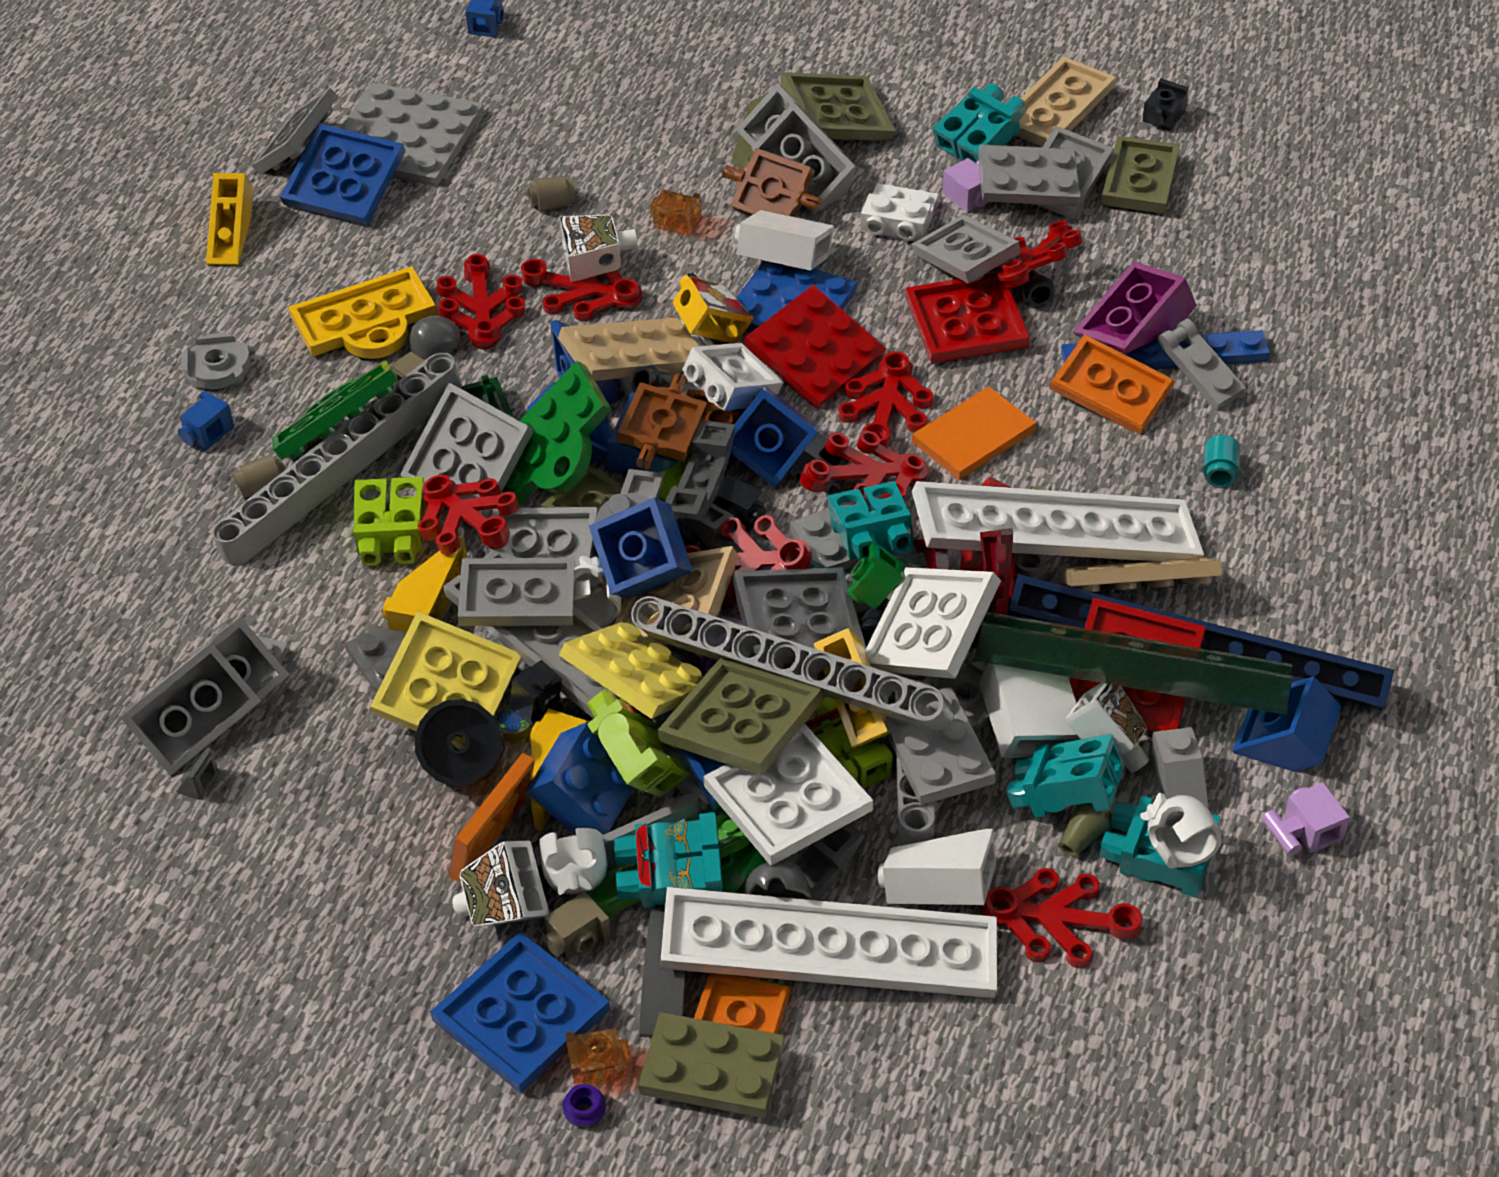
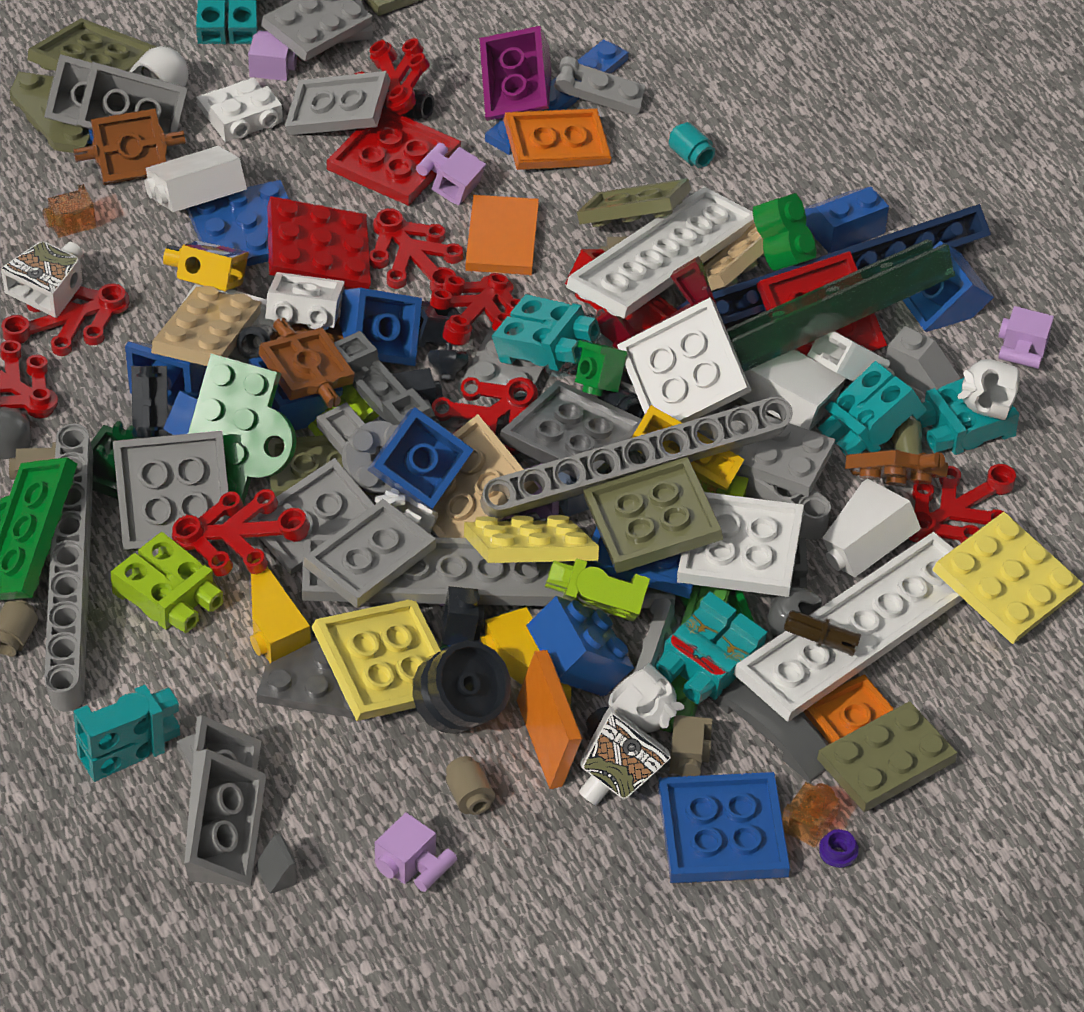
camera: 50 degrees left, 0 degrees up
(217, 596) = (125, 731): none -> teal hips
(284, 839) = (411, 848): none -> lavender brick
(388, 824) = (469, 785): none -> dark tan brick
(539, 374) = (149, 400): none -> black hinge
(765, 918) = (822, 632): none -> dark brown axle
(795, 500) = (448, 362): none -> black piece
(869, 147) = (163, 65): none -> white helmet
(989, 357) = (455, 175): none -> lavender brick
(1011, 1006) = (1008, 577): none -> light yellow plate
(1012, 827) = (898, 466): none -> dark orange plate
(1095, 471) = (634, 202): none -> olive plate
(1170, 562) = (784, 232): none -> green brick
(1277, 609) = (847, 219): none -> blue slope

